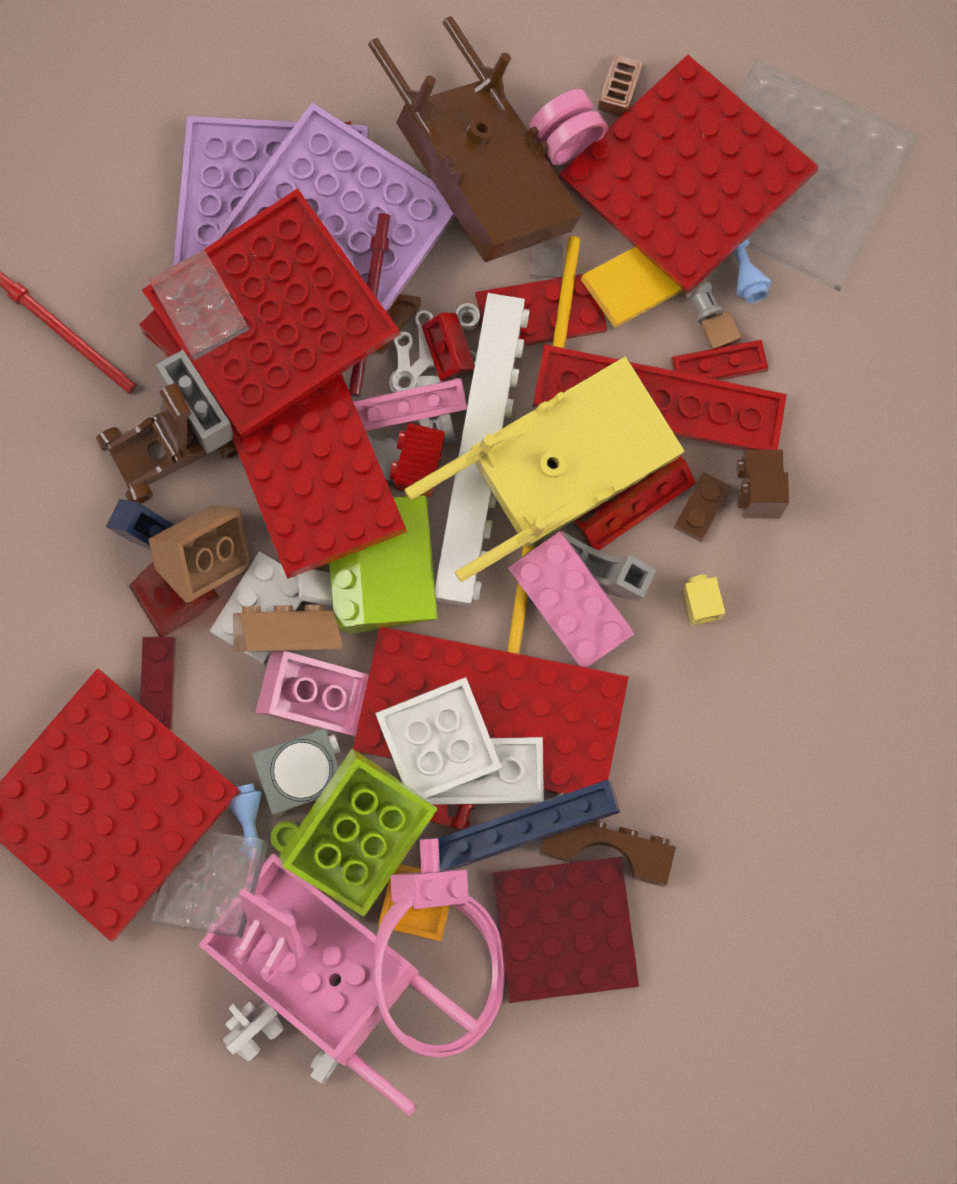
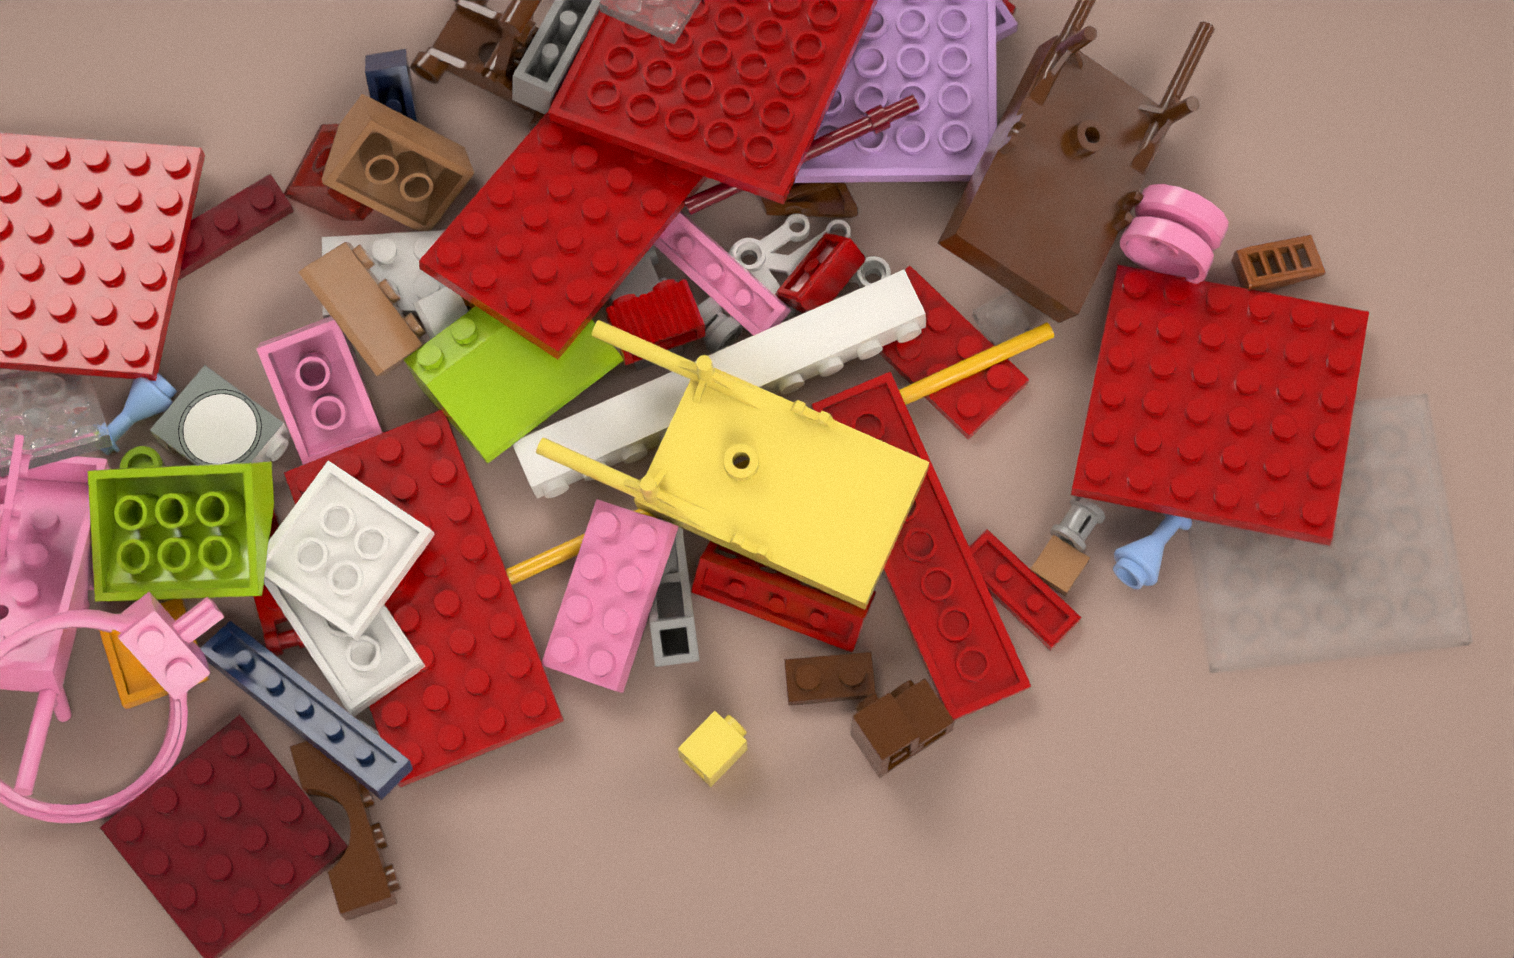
camera: 60 degrees right, 5 degrees down
(628, 286) = (1034, 425): yellow tile -> none

